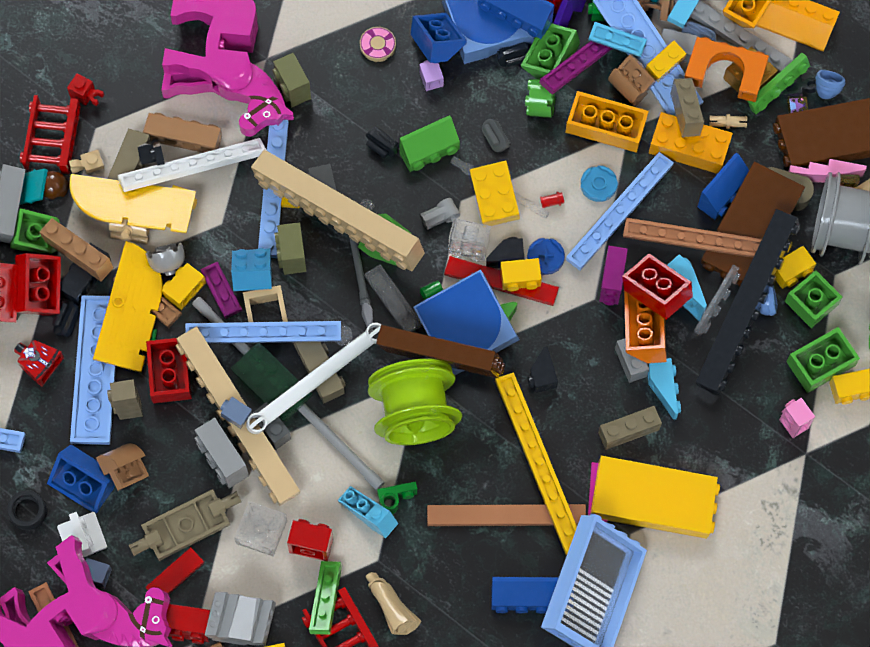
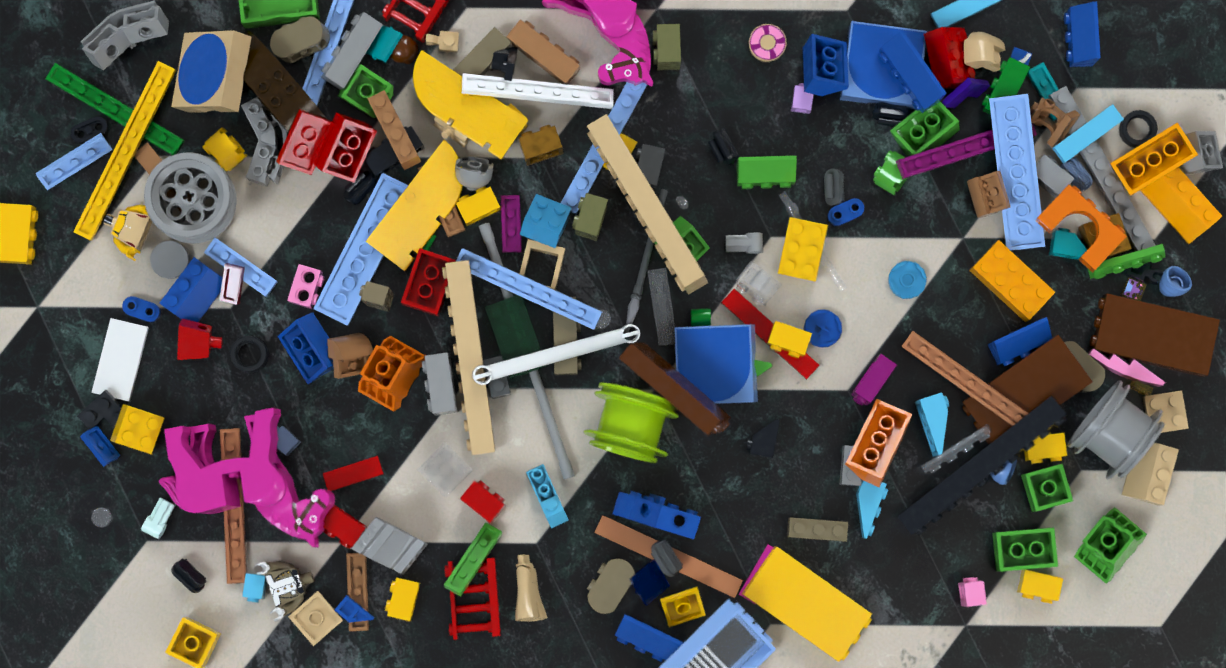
camera: 25 degrees right, 15 degrees up
(38, 360) = (317, 217): red torso -> none
(50, 426) = (300, 285): none -> bright pink brick
(87, 530) = (289, 398): white bracket -> none
(169, 467) = (390, 372): none -> orange slope
(185, 524) = (381, 433): dark tan plate -> none
(216, 208) = (540, 144): none -> pearl gold brick
(235, 412) = (467, 357): sand blue brick -> none
(394, 493) = (589, 494): green plate -> none
(466, 564) = (610, 586): none -> dark tan brick
(477, 480) = (653, 513): none -> blue brick
(500, 544) = (649, 582): none -> clear blue piece
(505, 514) = (666, 558): none -> dark grey piece
(508, 250) = (788, 311): black slope -> none
(517, 150) = (846, 212): none -> blue plate
(537, 459) = (720, 522): yellow plate -> none
(541, 552) = (682, 606): none -> yellow slope
(552, 200) = (855, 277): red pin -> none
(606, 121) = (943, 224): light orange brick -> none
(617, 39) = (993, 149): medium azure tile -> none
(619, 211) = (912, 316): light blue plate -> none
(657, 286) = (905, 415): red brick -> none
(666, 61) = (1027, 194): yellow brick -> none
(687, 107) = (1023, 250): dark tan brick -> none
(721, 94) = (1066, 244): none -> teal slope
(728, 121) = (1059, 274): tan pin -> none

